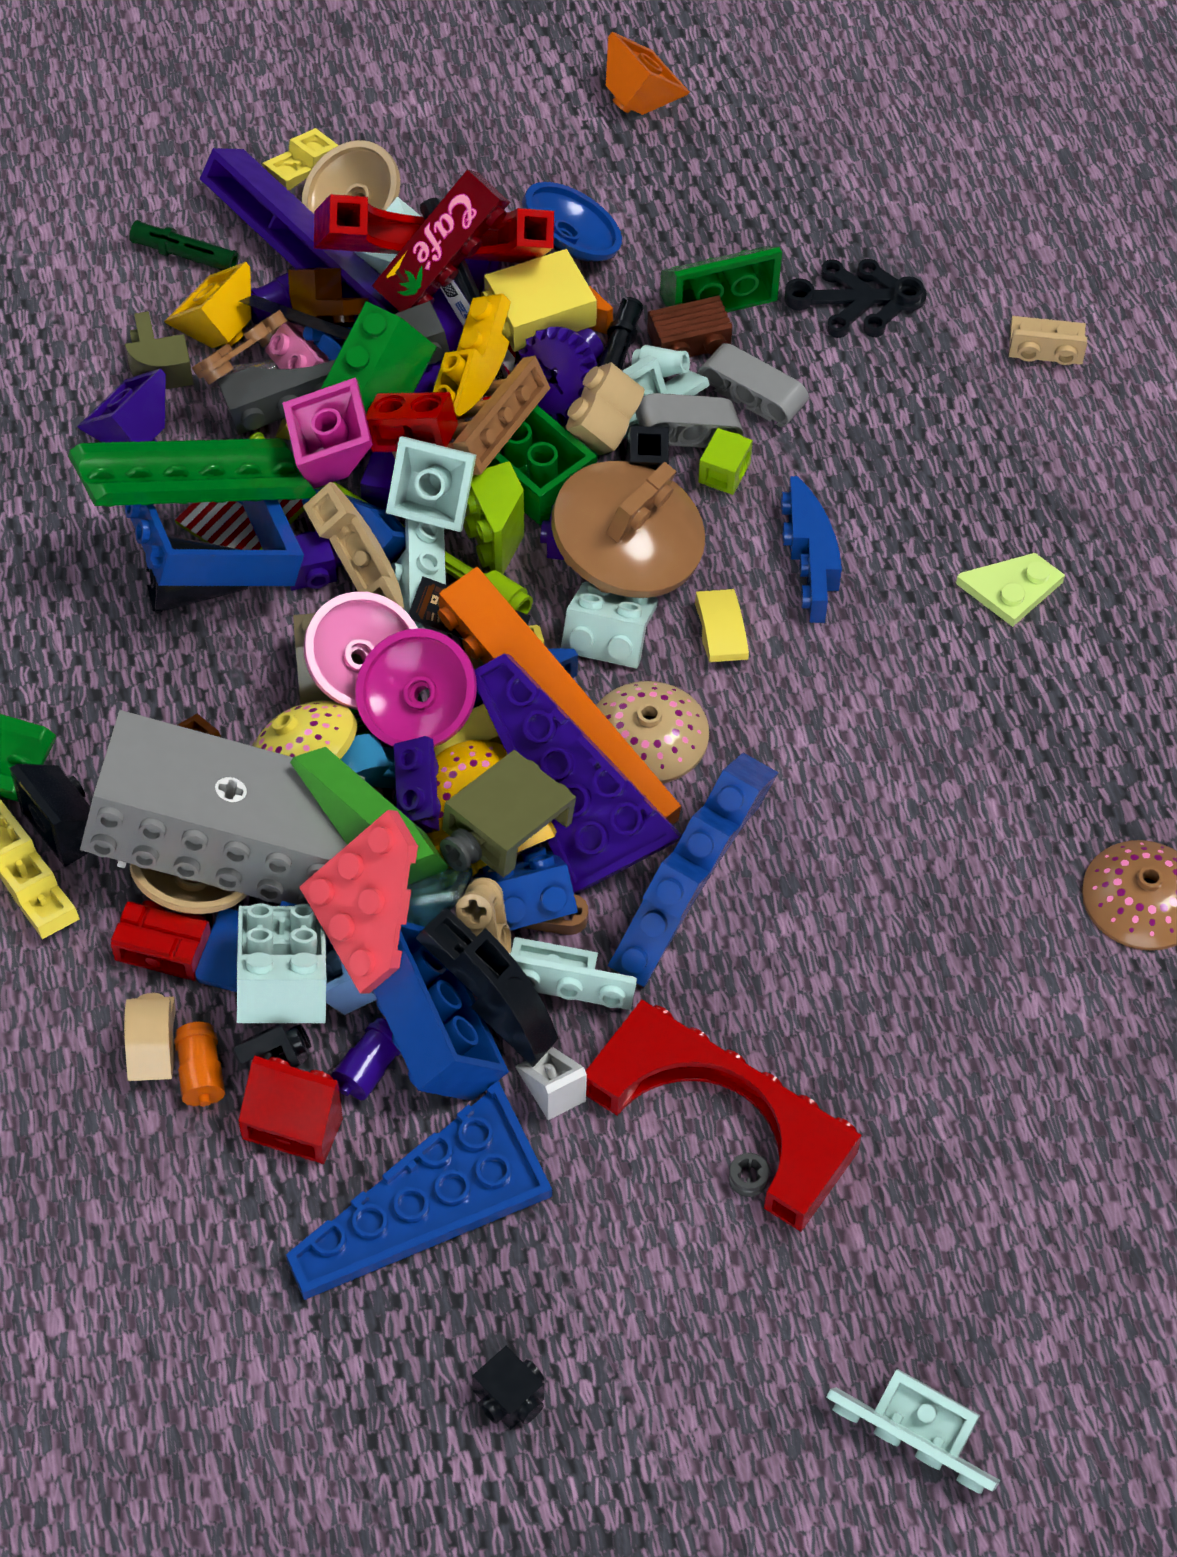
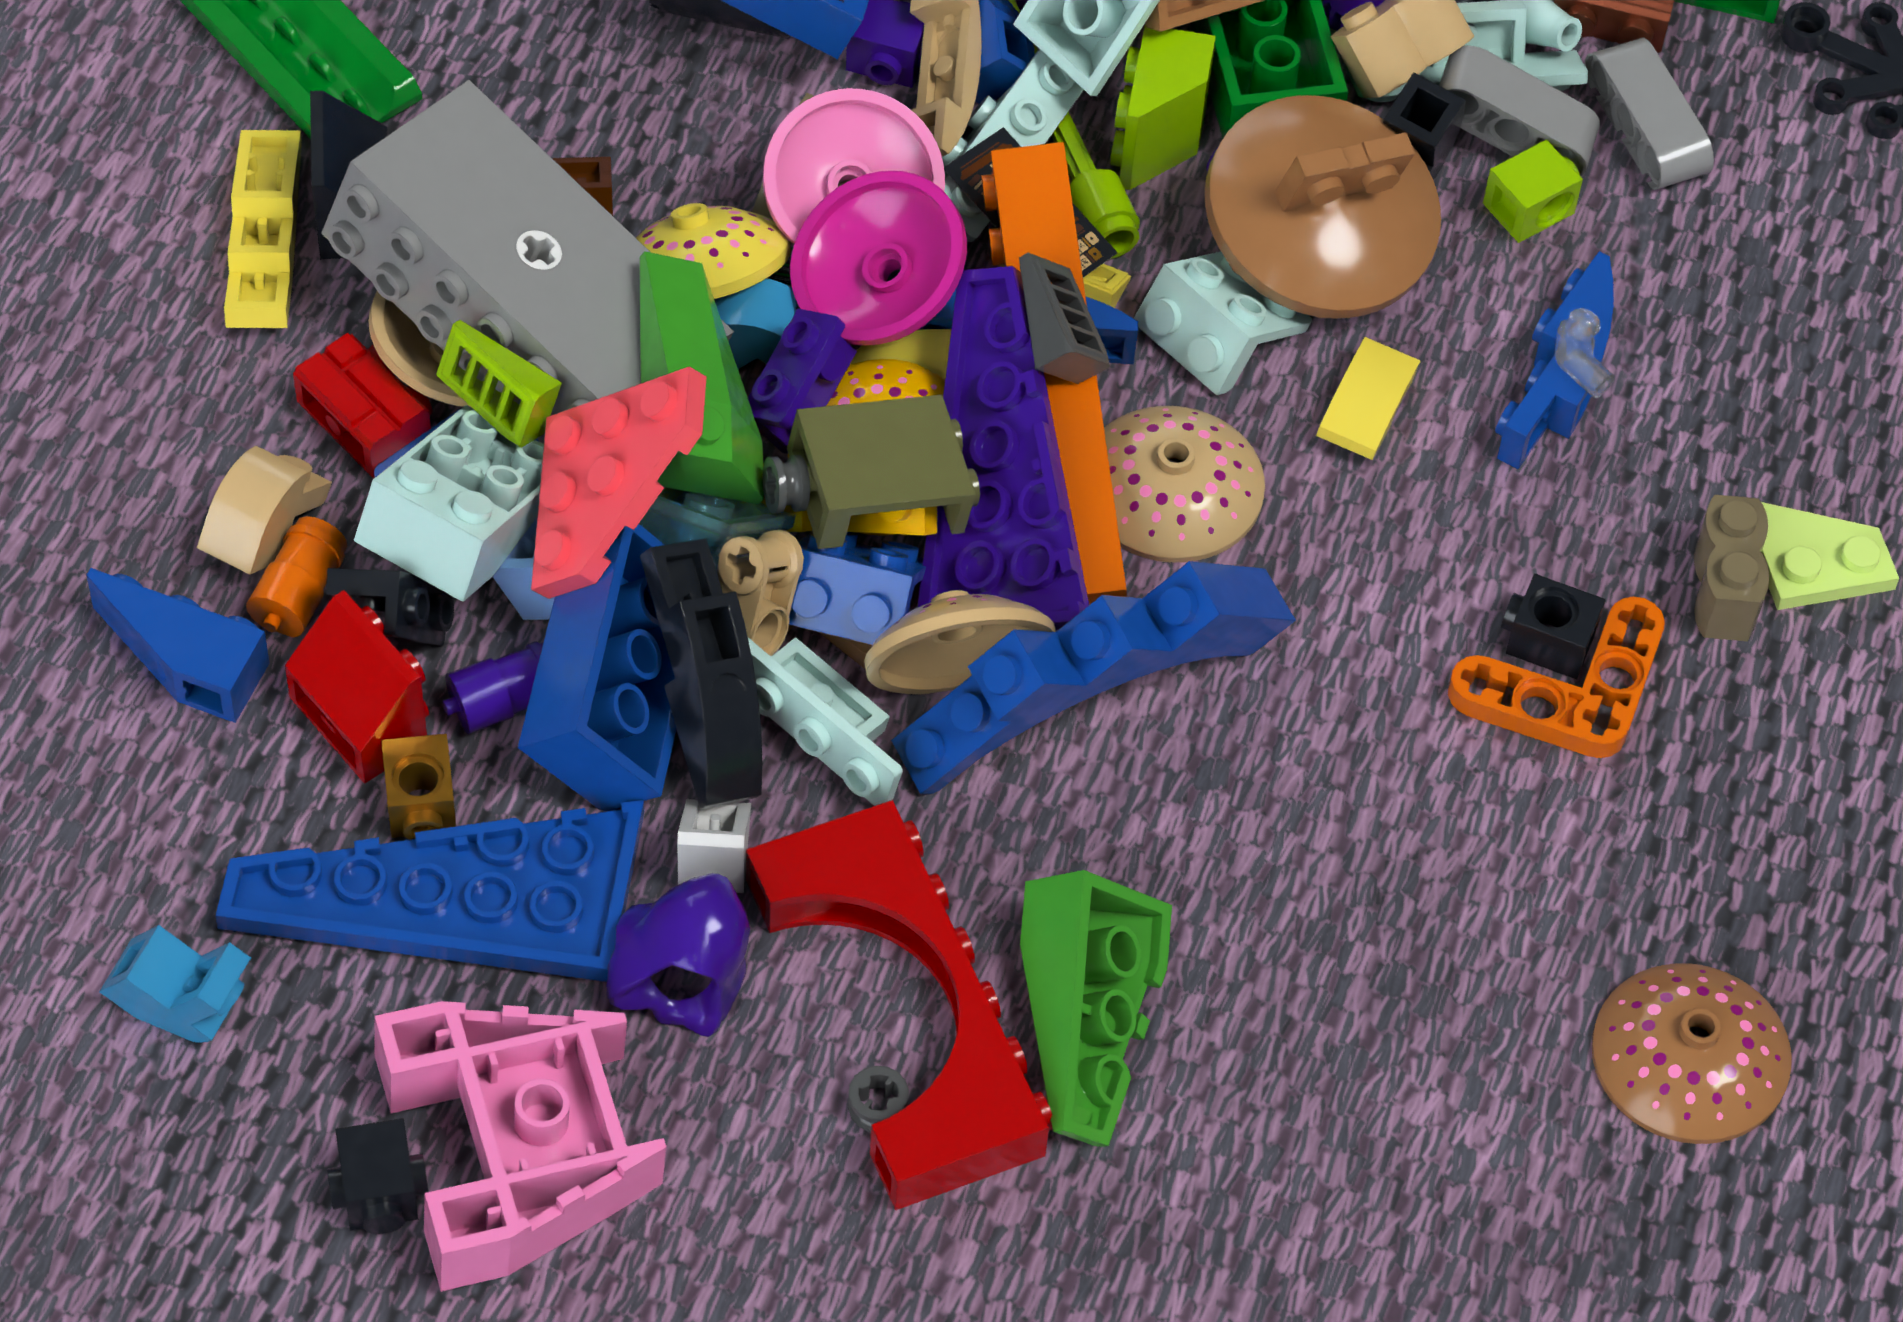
camera: 30 degrees right, 0 degrees up
(167, 1145) = (190, 650): none -> blue slope
(270, 870) = (535, 388): none -> lime slope
(312, 1349) = (176, 986): none -> dark azure brick
(361, 1131) = (416, 765): none -> pearl gold brick
(555, 676) = (1059, 322): none -> dark grey slope
(578, 1300) = (537, 1124): none -> bright pink wedge
(587, 1138) = (688, 927): none -> dark purple piece
(616, 886) = (940, 639): none -> tan dish
(804, 1025) = (1086, 969): none -> bright green wedge
(822, 540) = (1575, 352): none -> clear arm
(916, 686) = (1563, 606): none -> black brick
(950, 738) = (1574, 706): none -> orange beam
(980, 616) = (1731, 568): none -> dark tan brick

